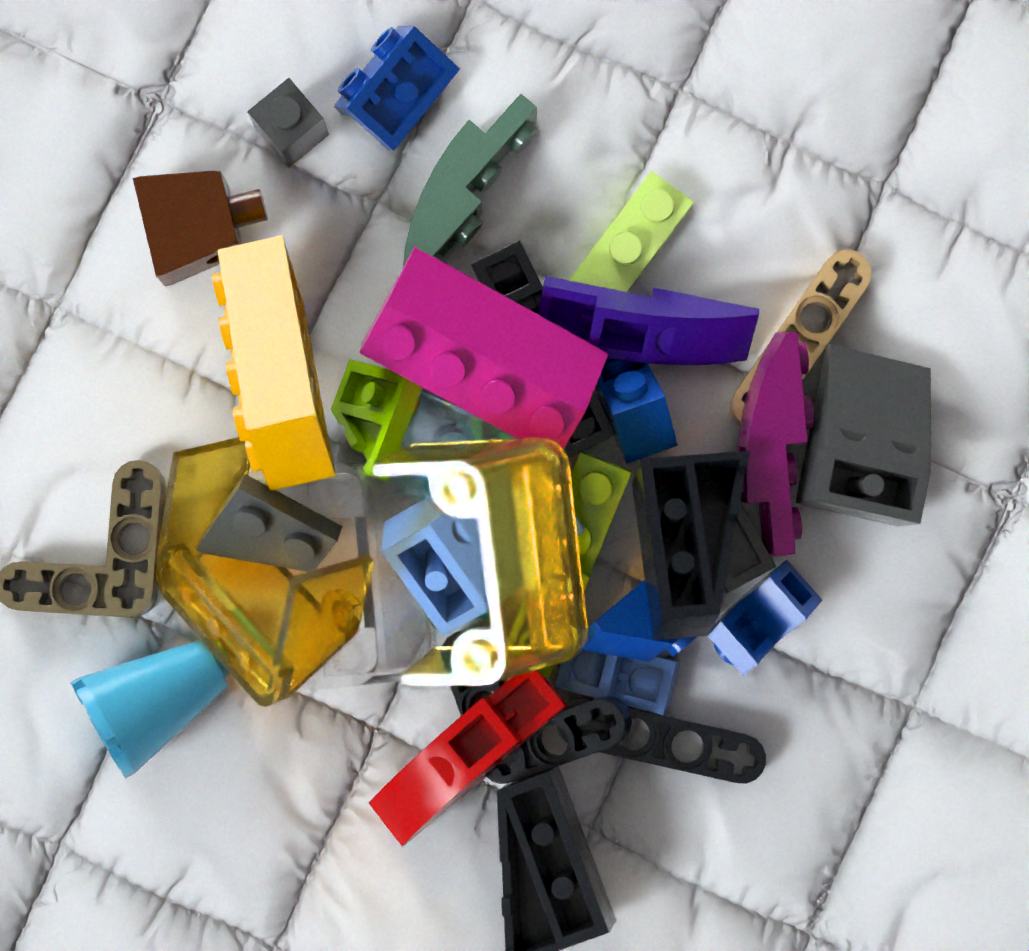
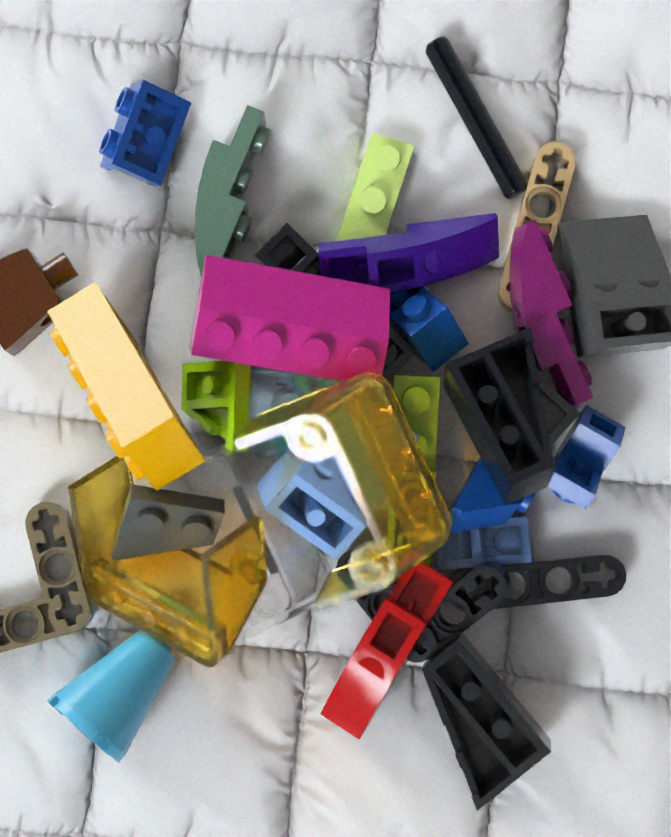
camera: 20 degrees left, 0 degrees up
(288, 122) = (68, 191): dark grey brick -> none
(775, 193) = (476, 117): none -> black axle

